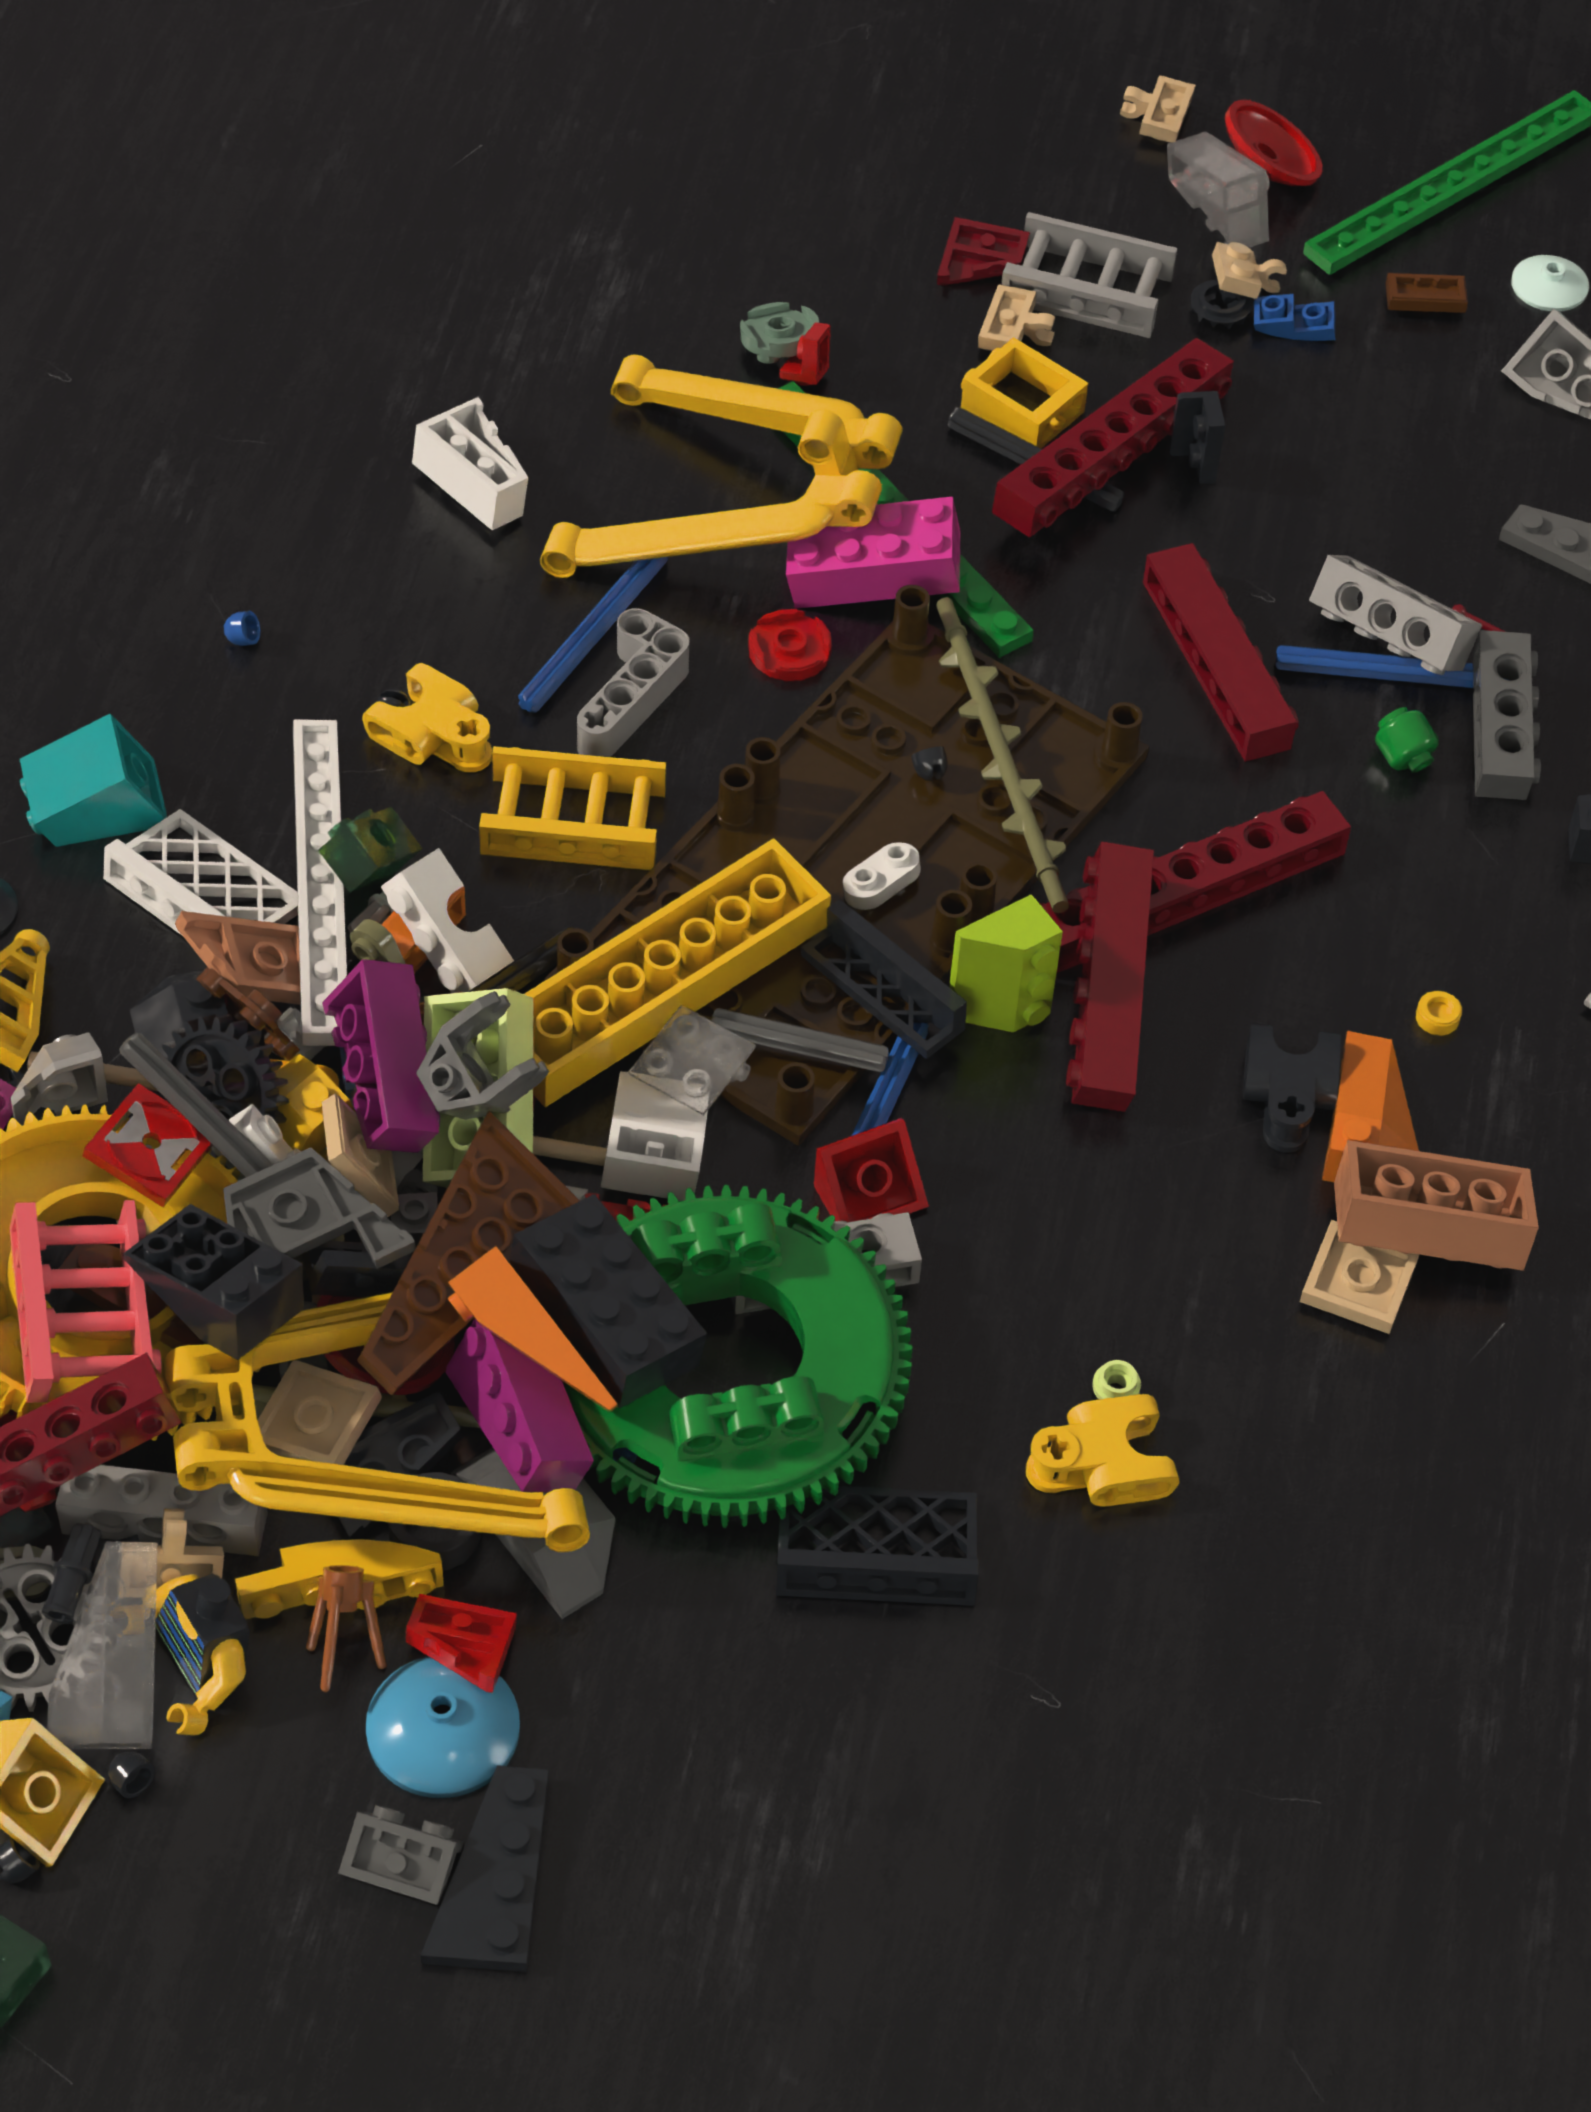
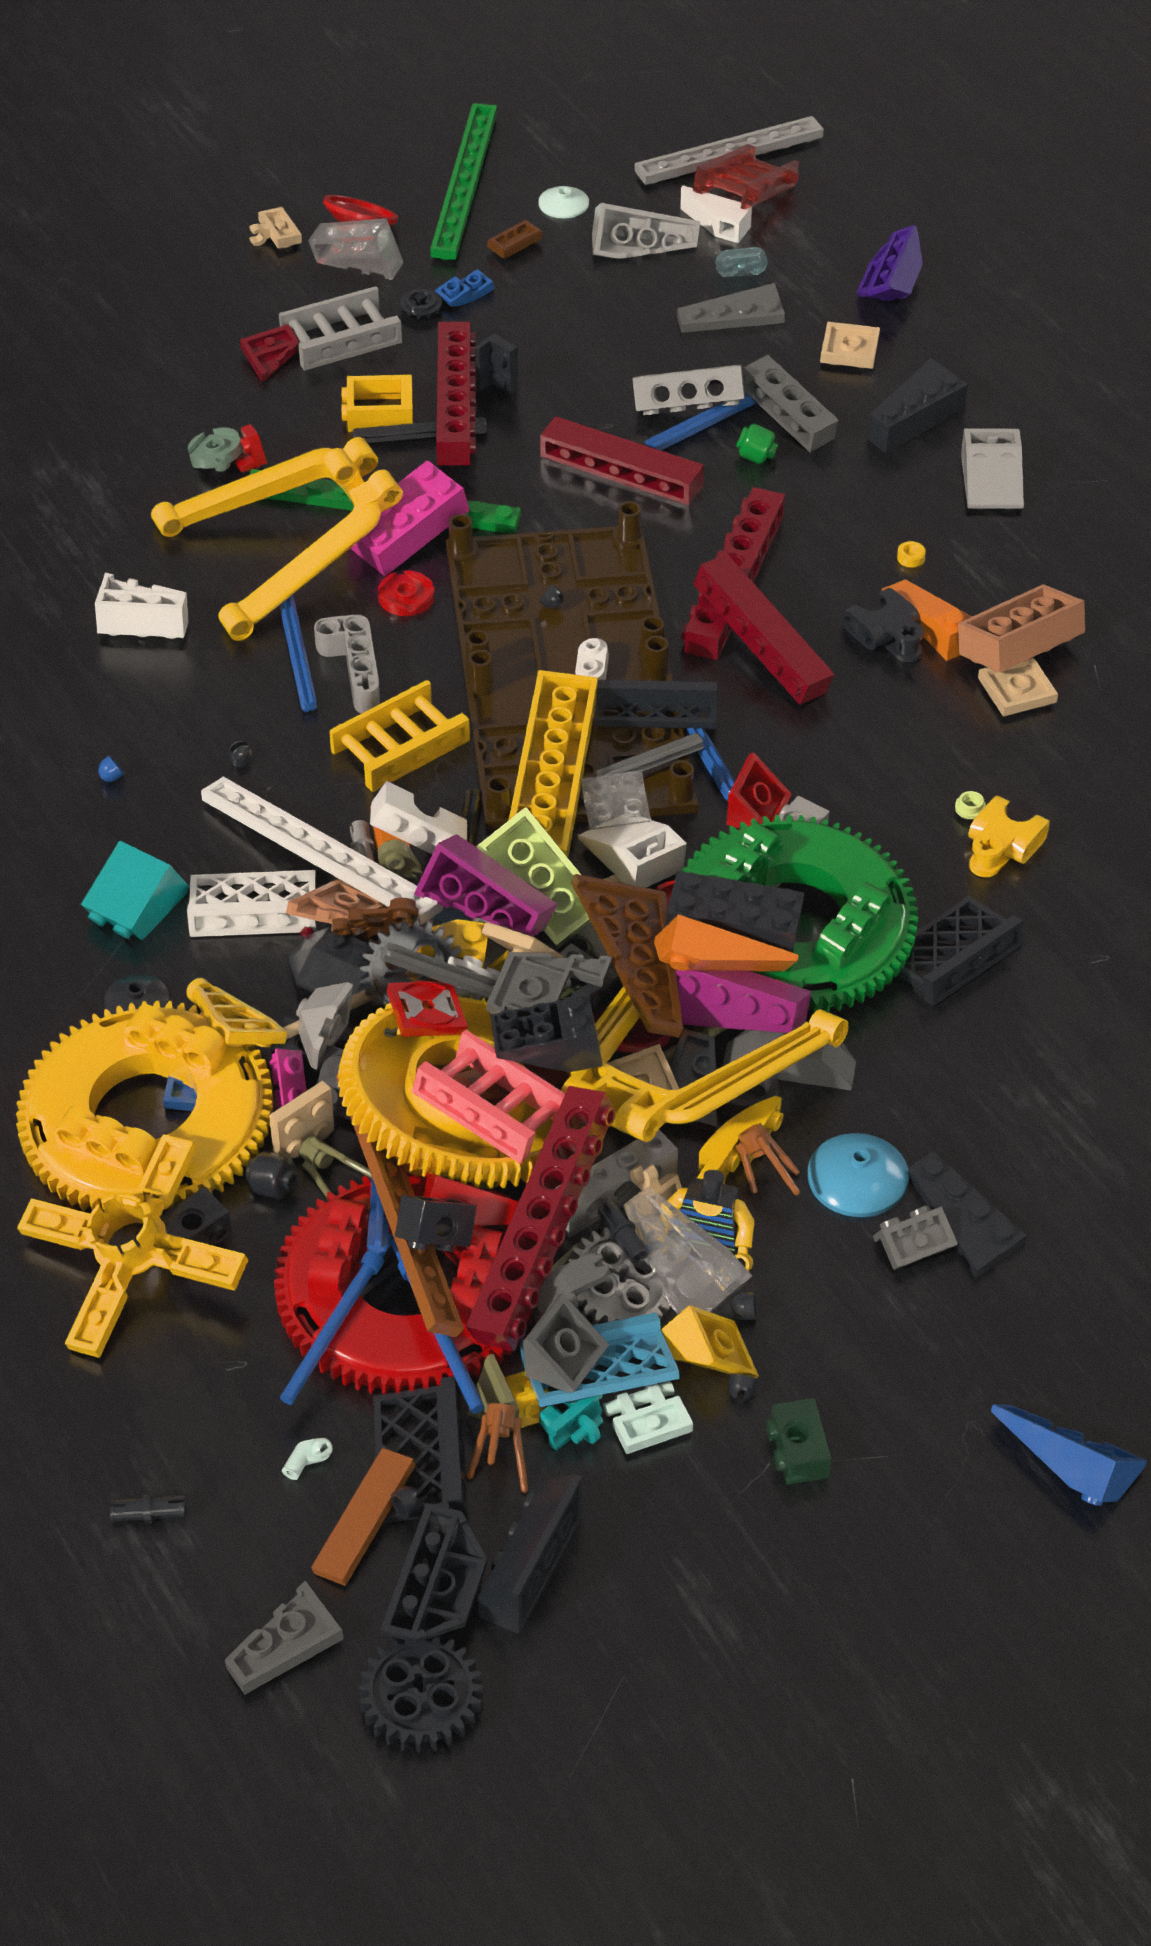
camera: 40 degrees left, 5 degrees down
(369, 848) = (331, 816): clear green brick -> none
(438, 723) = (274, 744): yellow piece -> none
(458, 1076) = (561, 869): dark grey piece -> none
(462, 1637) = (826, 1126): red wing -> none
(1003, 765) = (589, 573): olive plant -> none
(1007, 966) = (720, 649): lime slope -> none
(1011, 317) = (328, 375): tan plate -> none
(1239, 272) = (415, 281): tan plate -> none

